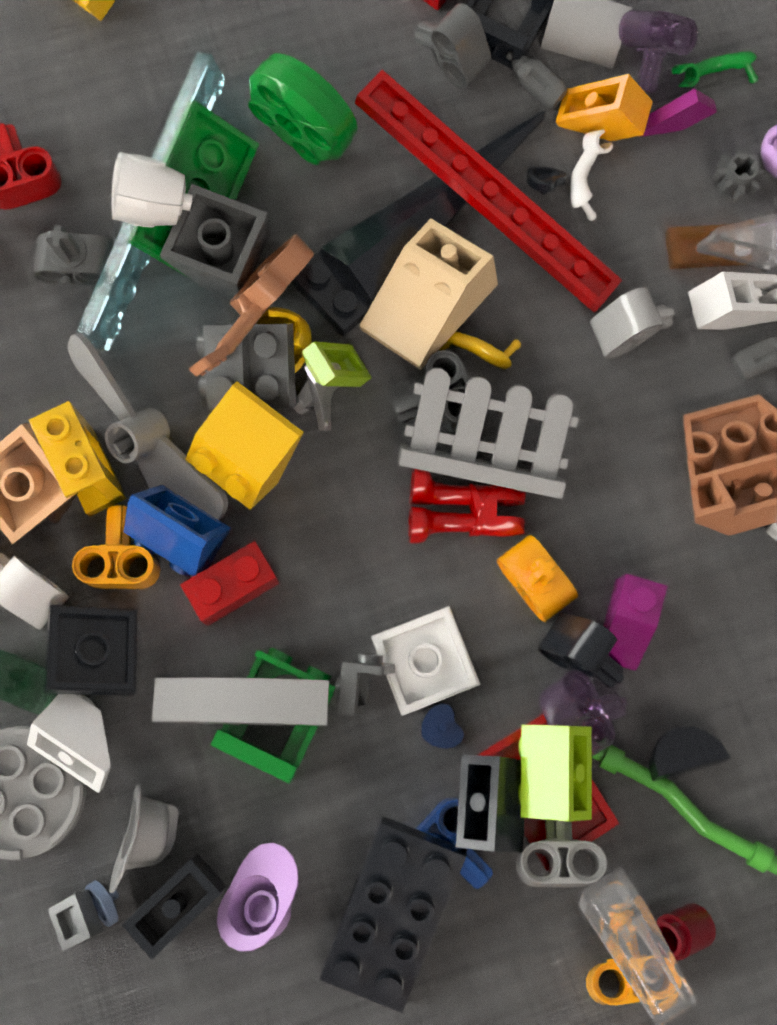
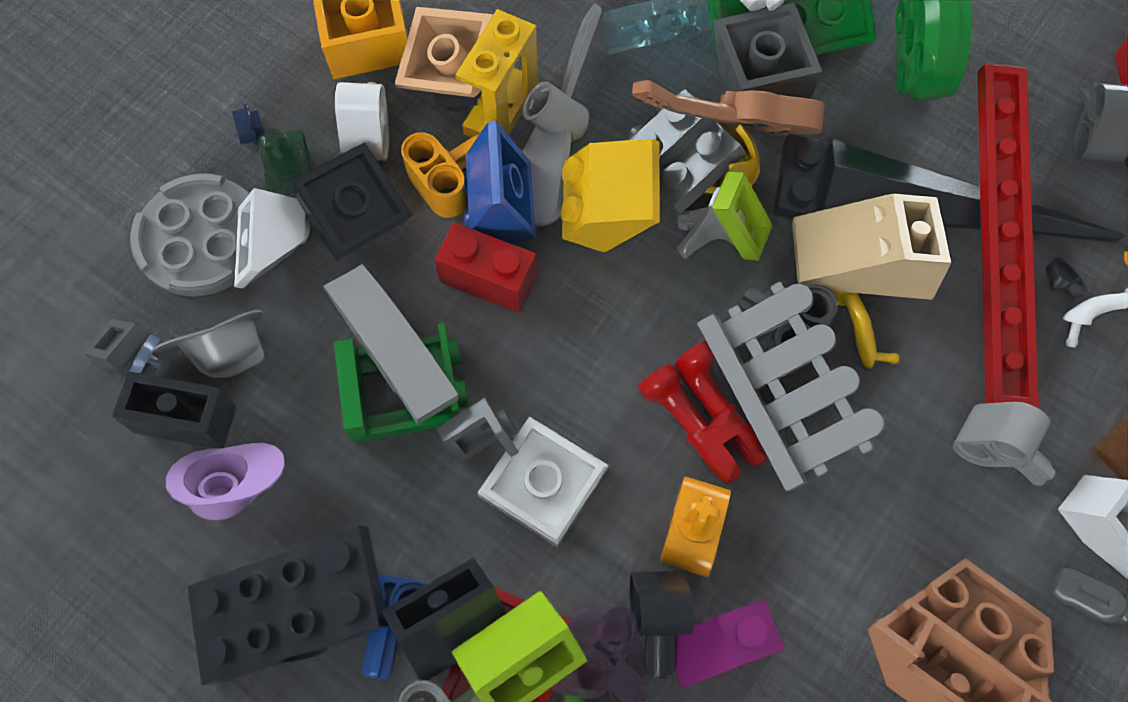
camera: 60 degrees right, 10 degrees down
(440, 727) = (491, 539): dark blue piece -> none

